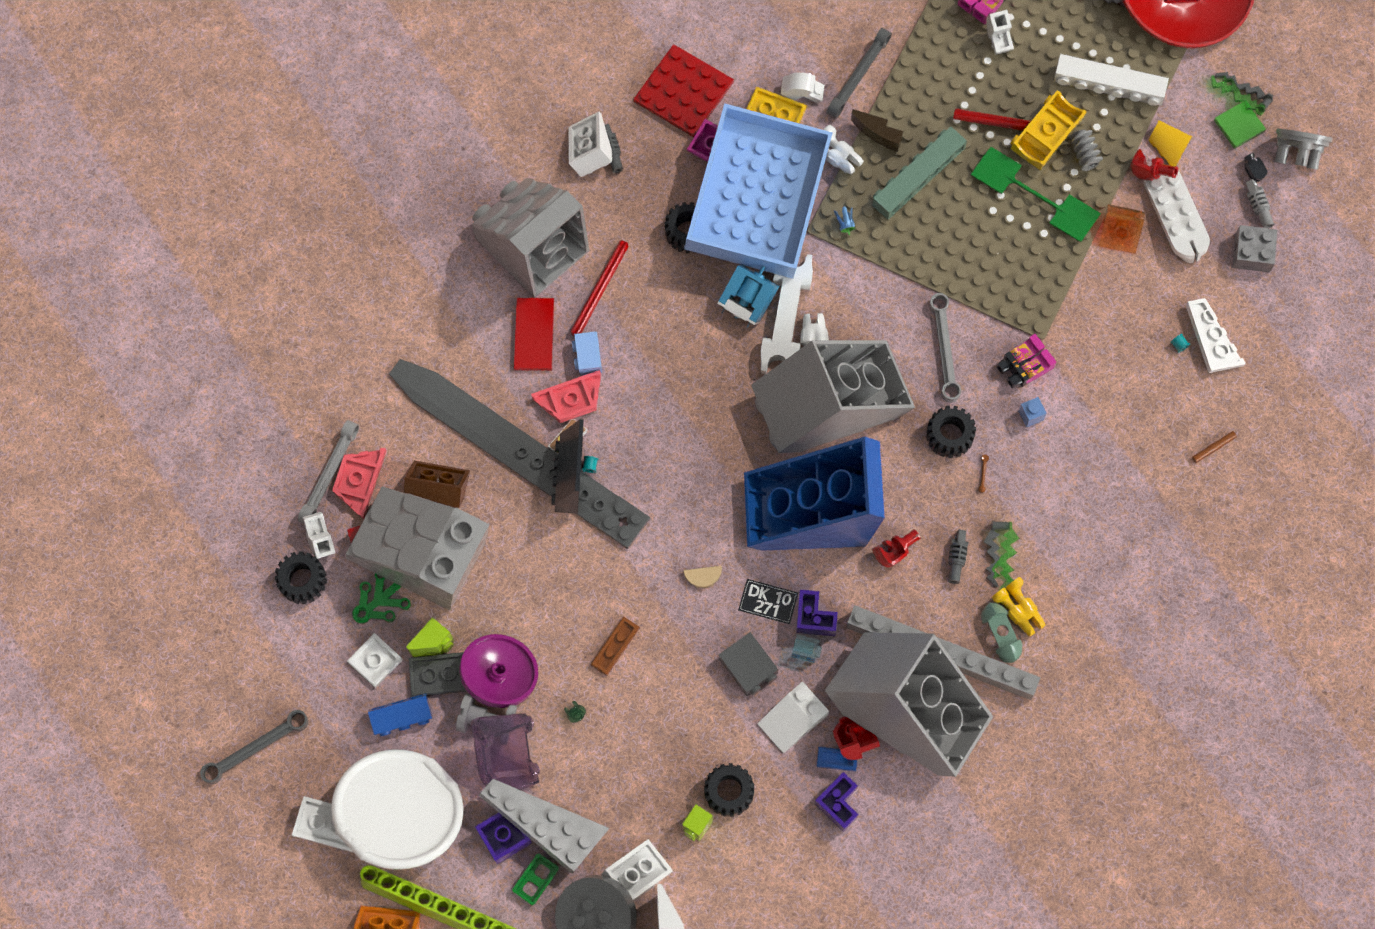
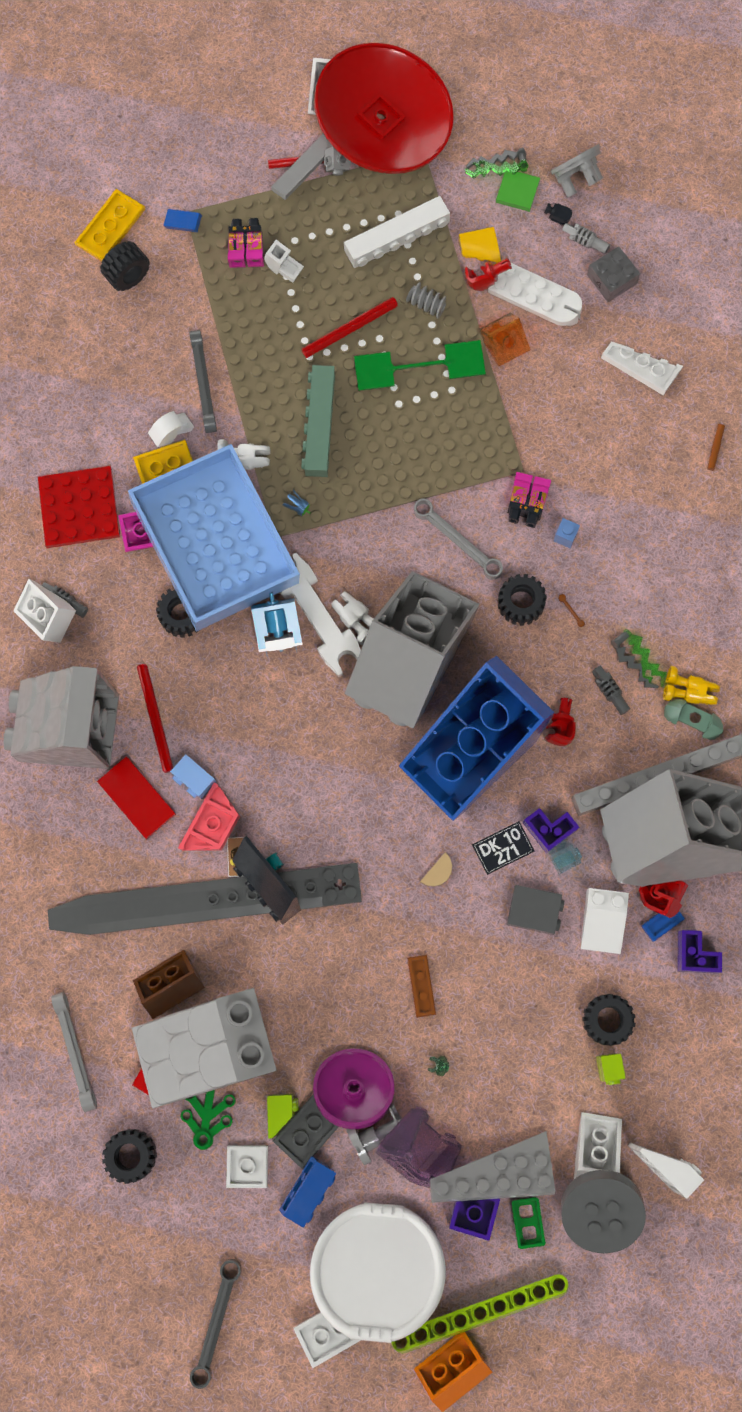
camera: 40 degrees left, 5 degrees up
(318, 536) = (113, 1110): white brick -> none
(358, 479) = (102, 1035): coral wing -> none
(877, 129) = (258, 414): dark brown slope -> none
(1047, 130) = (386, 309): yellow piece -> none
(1180, 343) = (623, 390): teal axle -> none

